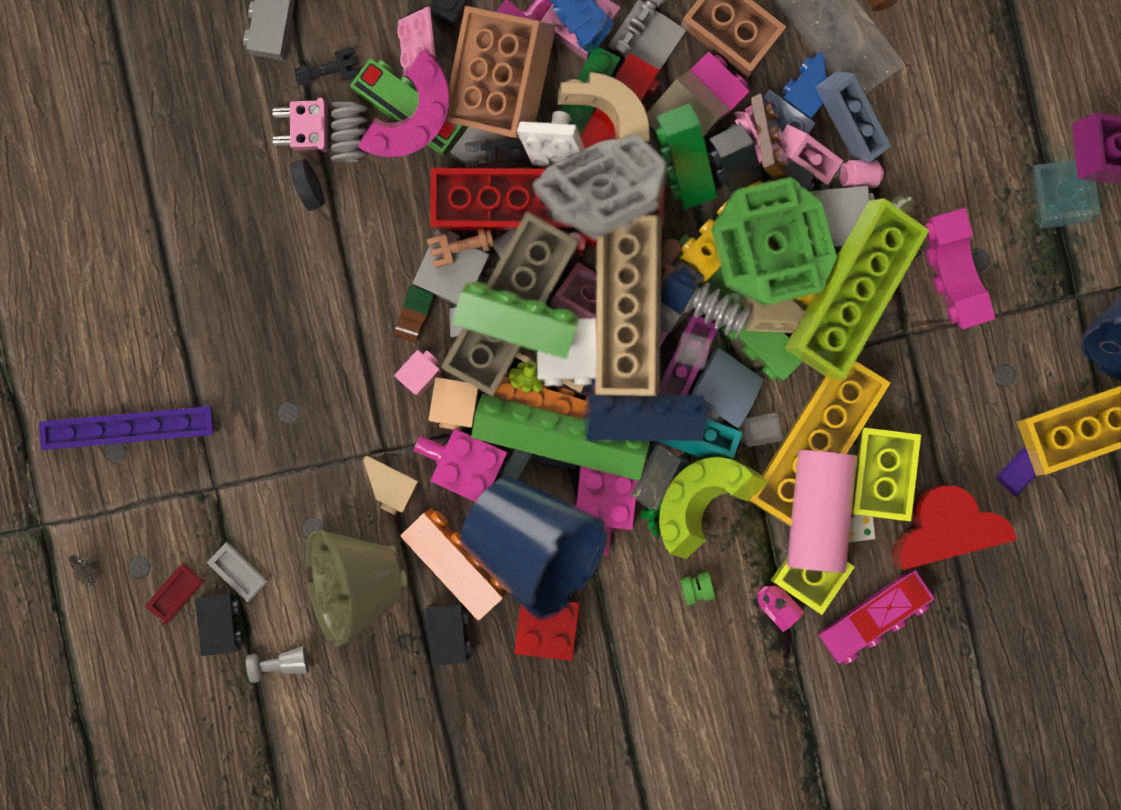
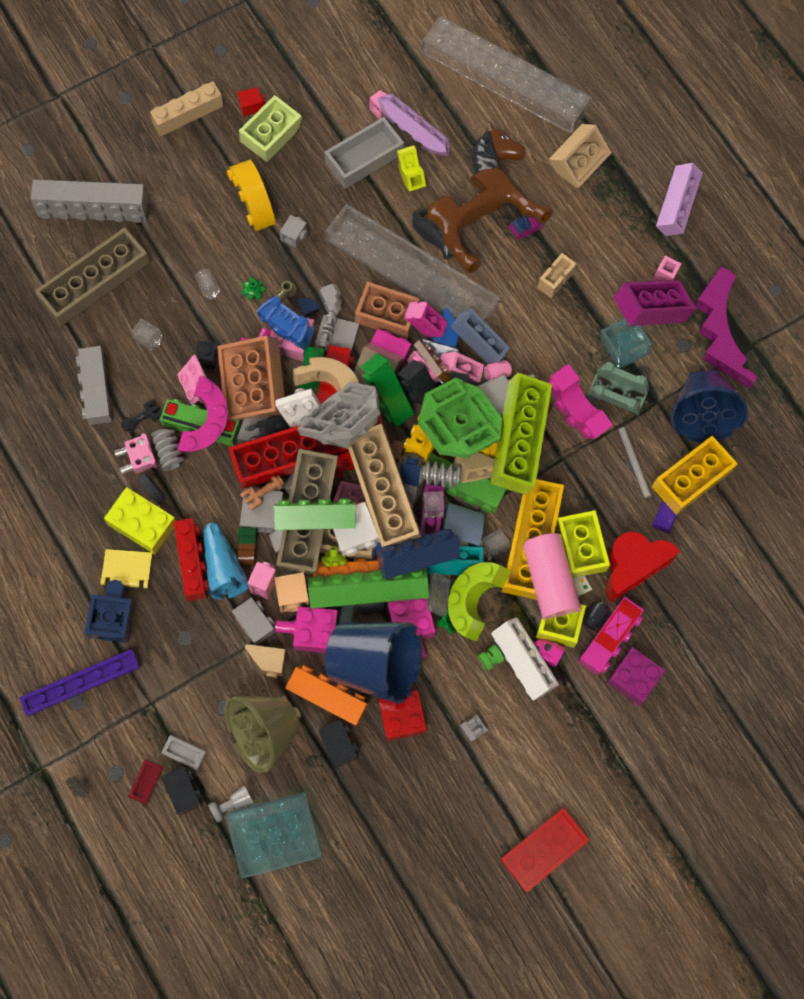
camera: 25 degrees left, 15 degrees down
(197, 350) = (111, 613): none -> dark blue brick
(238, 286) = (127, 567): none -> light yellow piece
(277, 226) = (140, 520): none -> neon yellow brick
(320, 724) = (273, 835): none -> clear light blue slope
(328, 306) = (190, 561): none -> red brick
(370, 338) = (223, 568): none -> dark azure cone
(389, 424) = (253, 621): none -> light grey brick
(639, 675) = (473, 728): none -> light grey tile
(747, 640) = (524, 659): none -> white brick
(782, 65) = (426, 319): none -> dark pink brick
(865, 579) = (595, 615): none -> black brick
(887, 685) = (635, 676): none -> magenta brick
(1007, 377) = (634, 462): none -> light grey bar
(1010, 52) = (556, 275): none -> tan piece
(1037, 251) = (619, 380): none -> sand green piece

